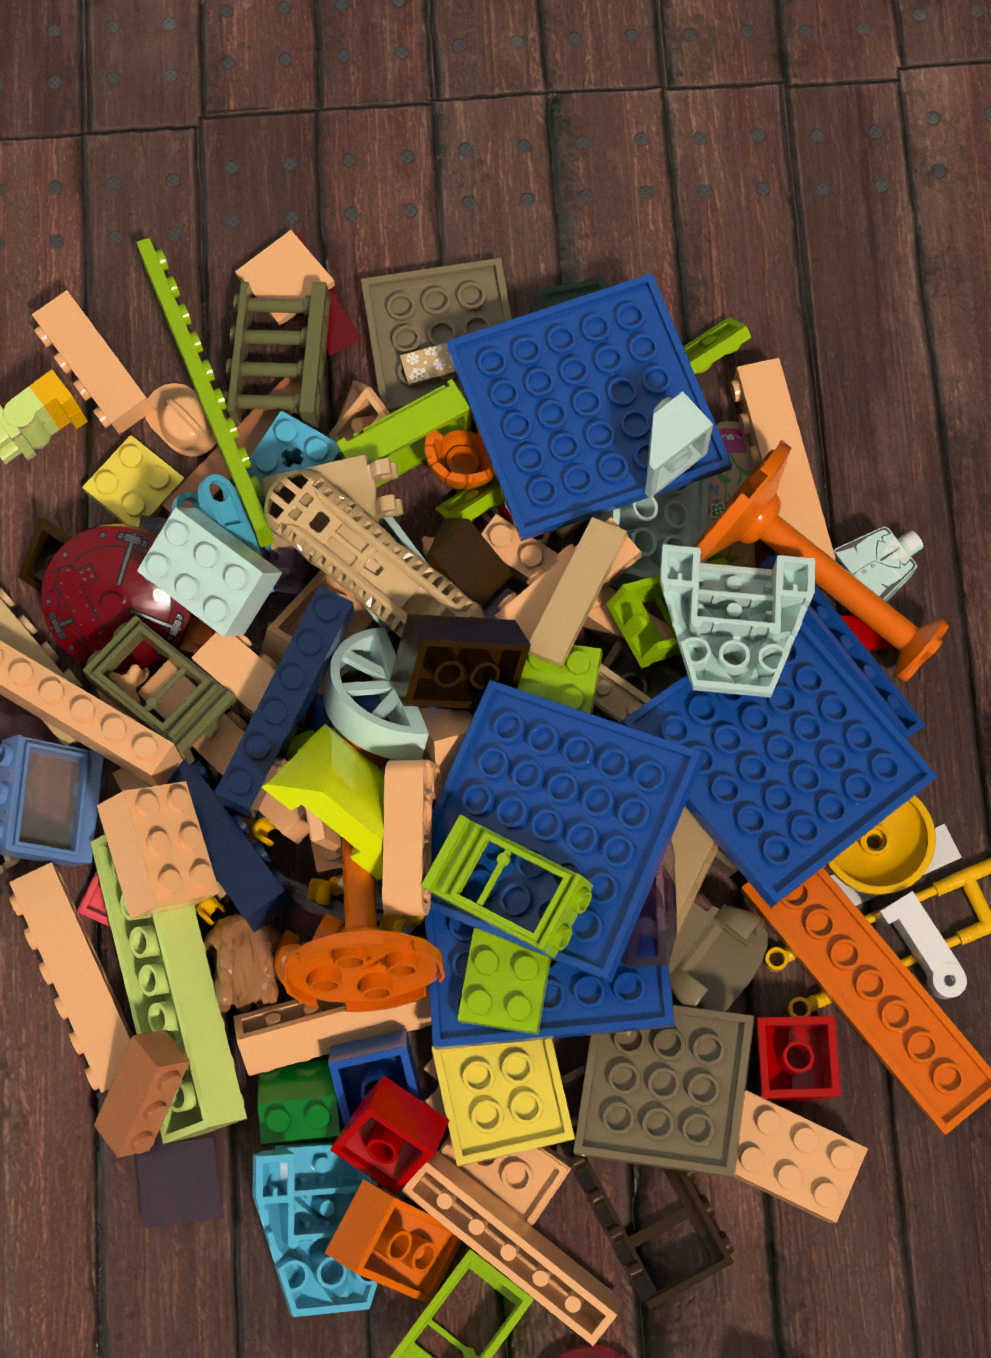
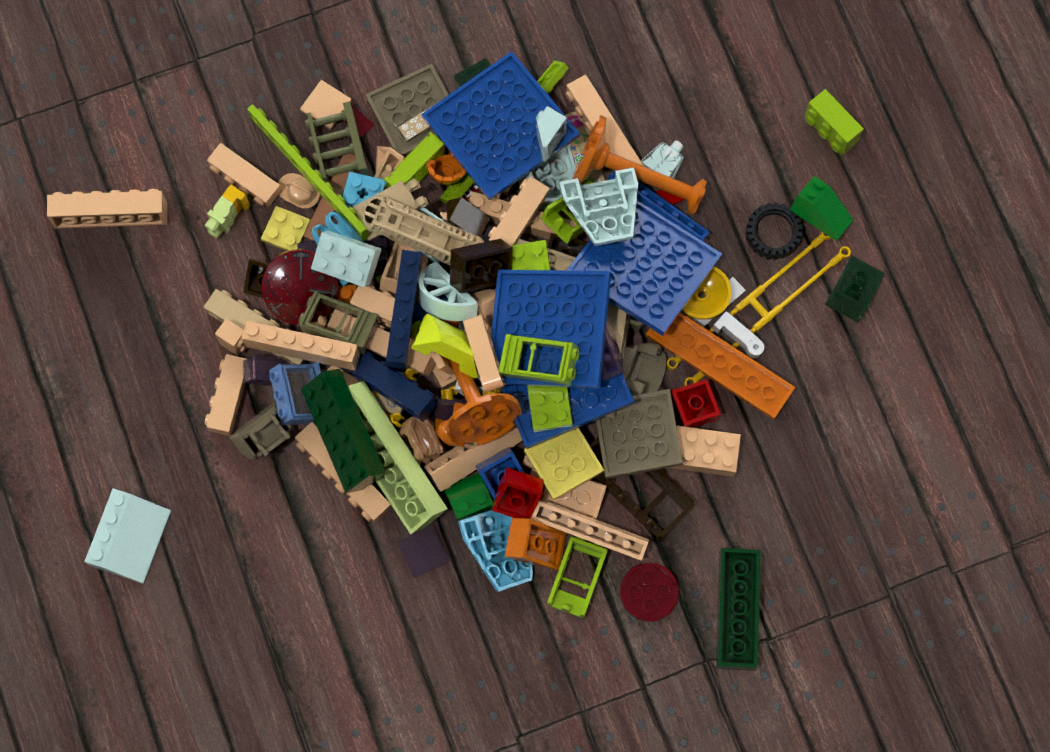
camera: 20 degrees left, 0 degrees up
(93, 935) = (342, 430): none -> dark green brick
(141, 1093) = (394, 512): nougat brick -> none
(157, 849) = (366, 395): light nougat brick -> none
(576, 592) = (525, 216): tan tile -> none

